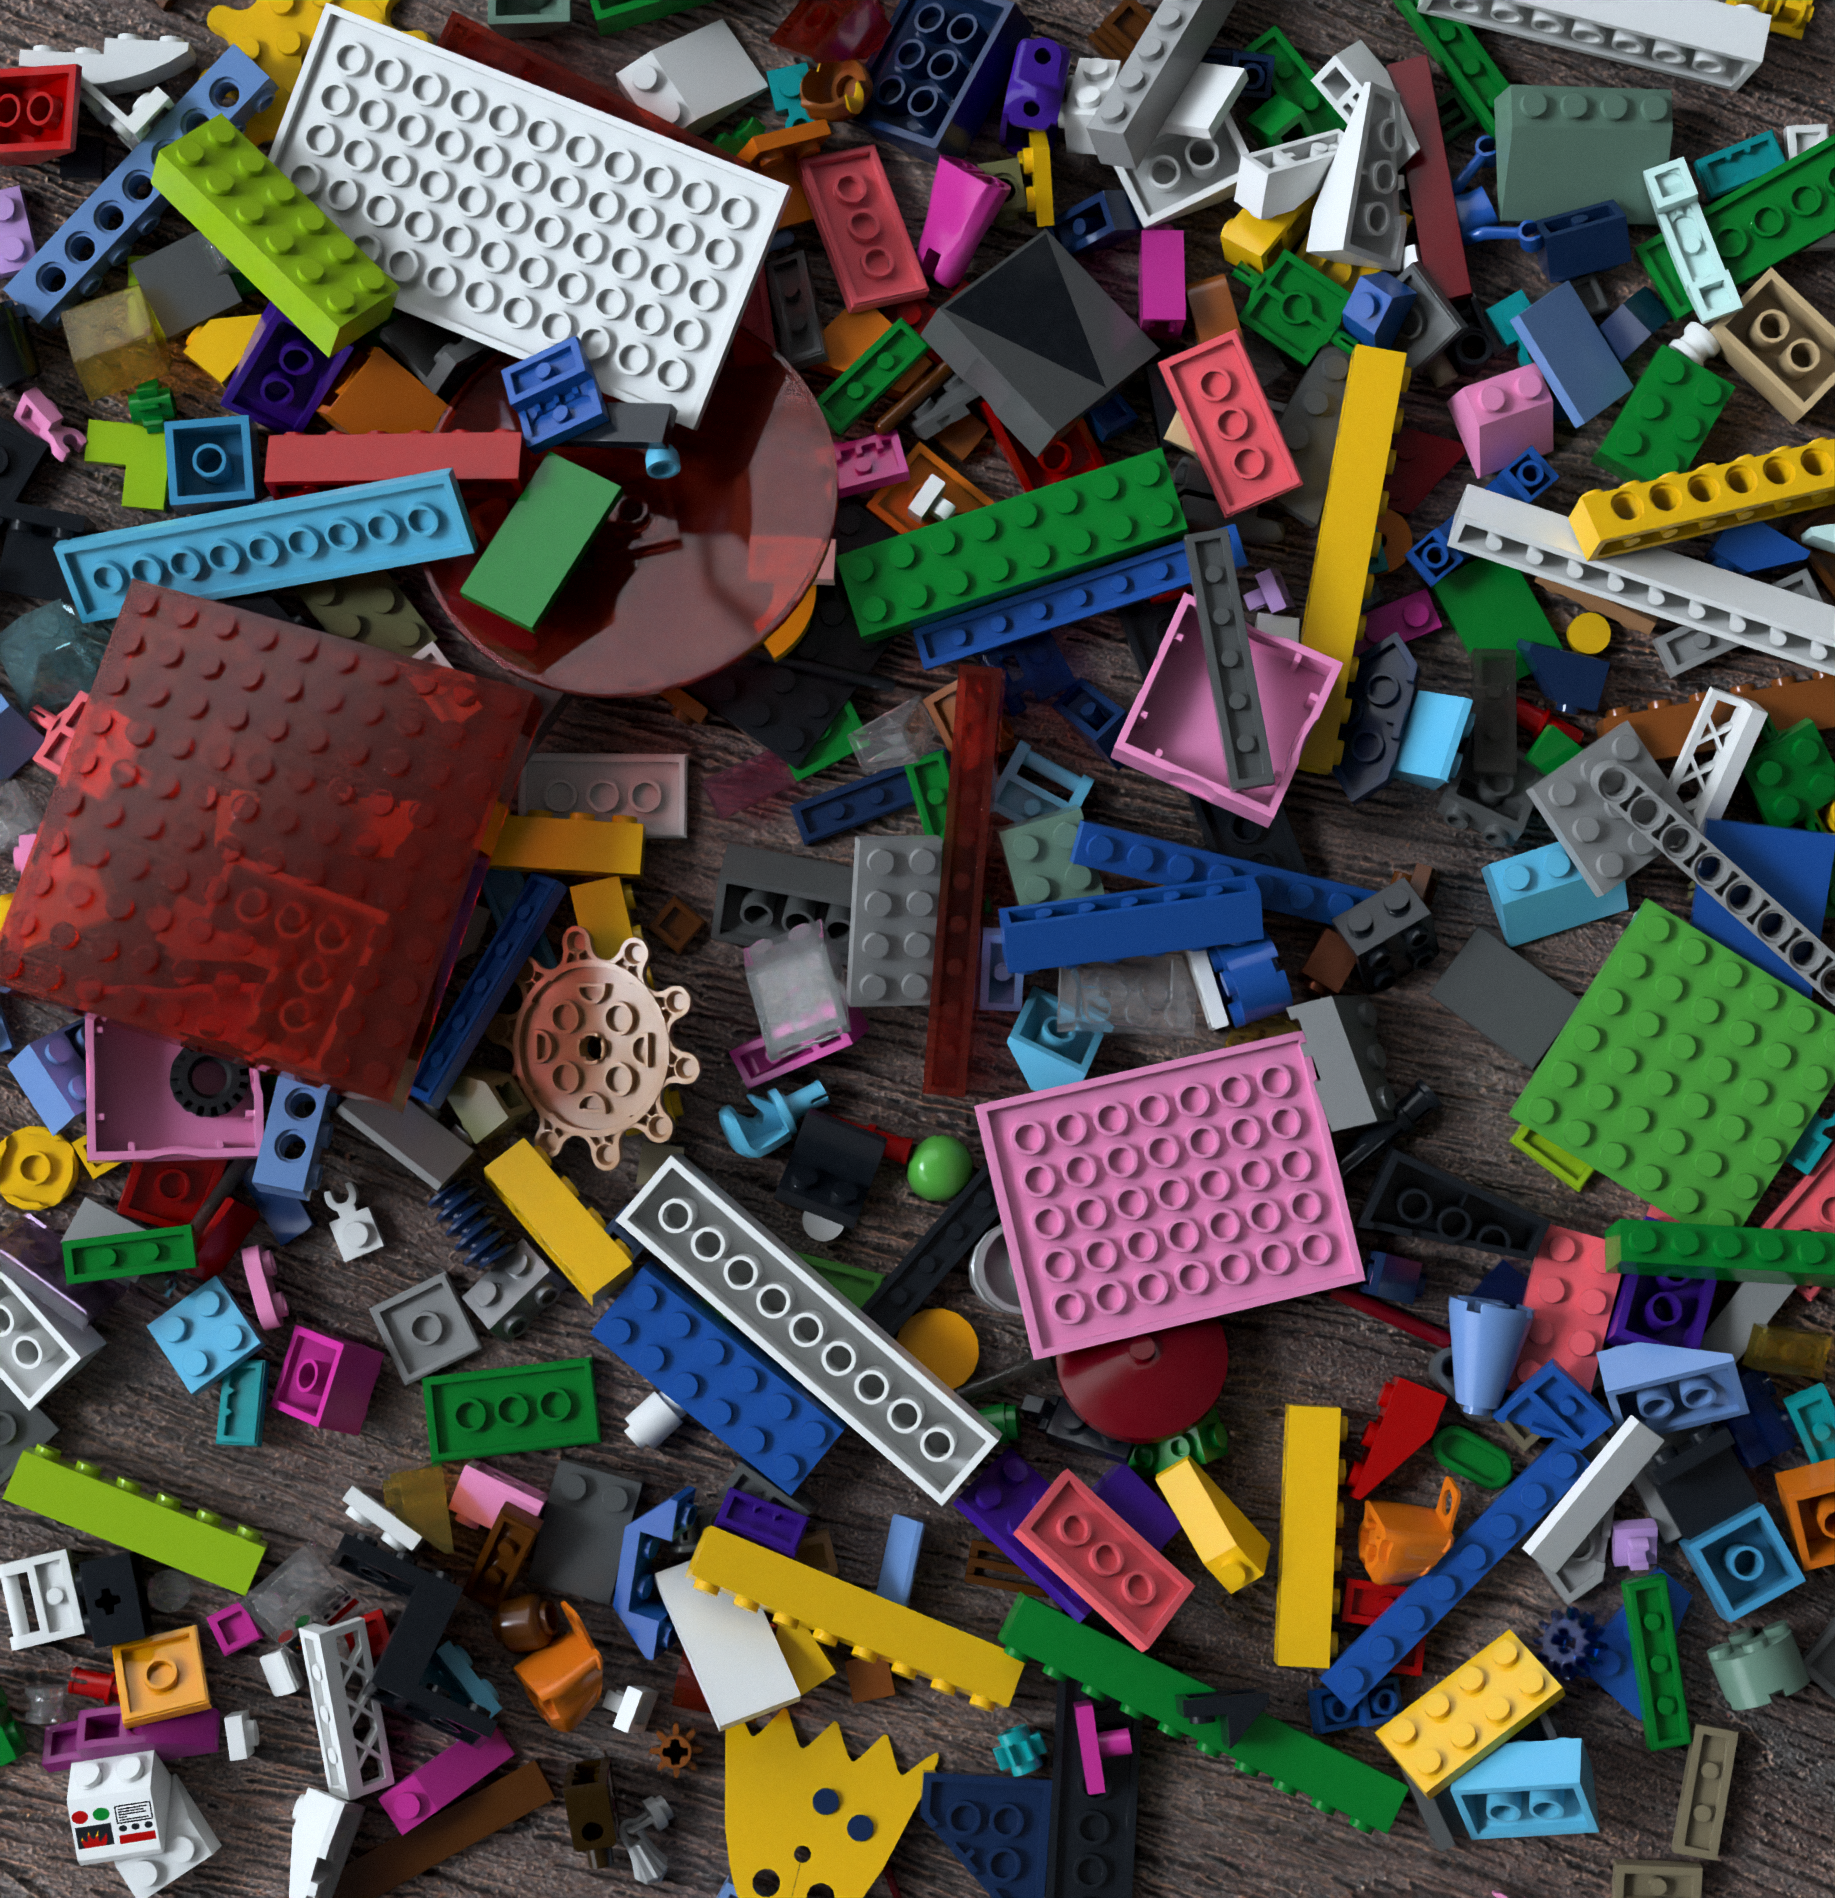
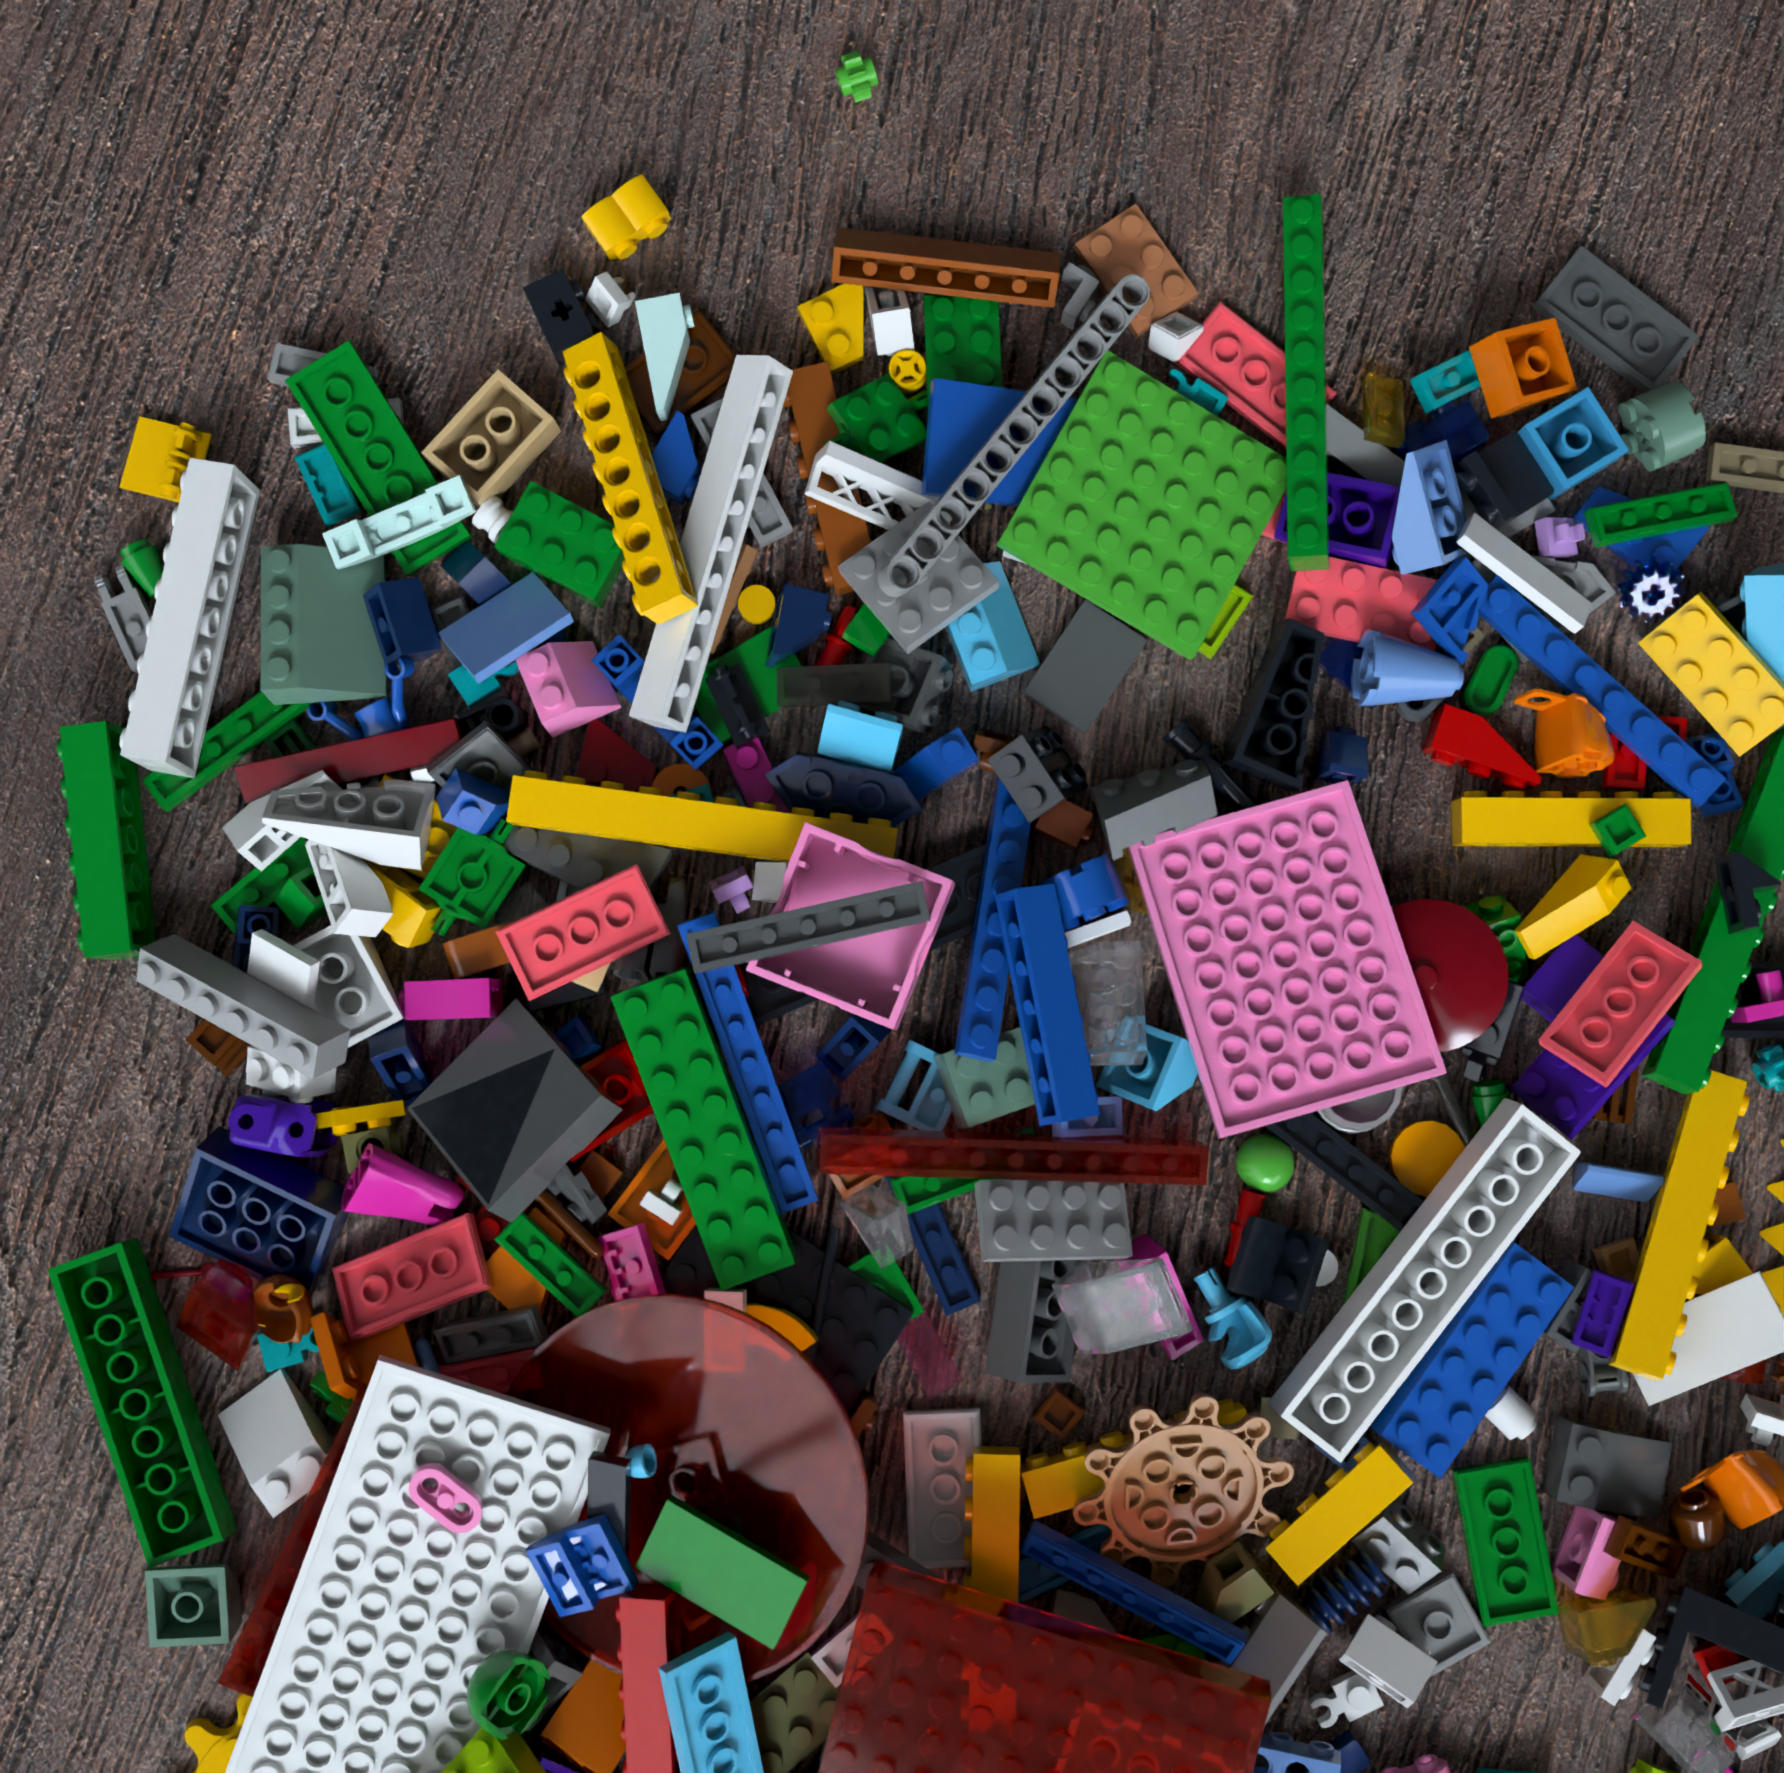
camera: 90 degrees left, 0 degrees up
(327, 1380) = (1493, 1715): dark pink slope -> none
(397, 1265) = (1388, 1659): none -> white brick
(430, 311) = (507, 1692): none -> green cylinder
(636, 249) = (442, 1498): none -> bright pink plate
(643, 1616) = (1673, 1422): blue slope -> none
(1297, 1580) = (1617, 830): none -> green tile
(1391, 1316) = (1374, 748): dark red bar -> none
(1400, 825) = (939, 763): none -> blue slope
(1476, 605) = (737, 704): none -> black hinge

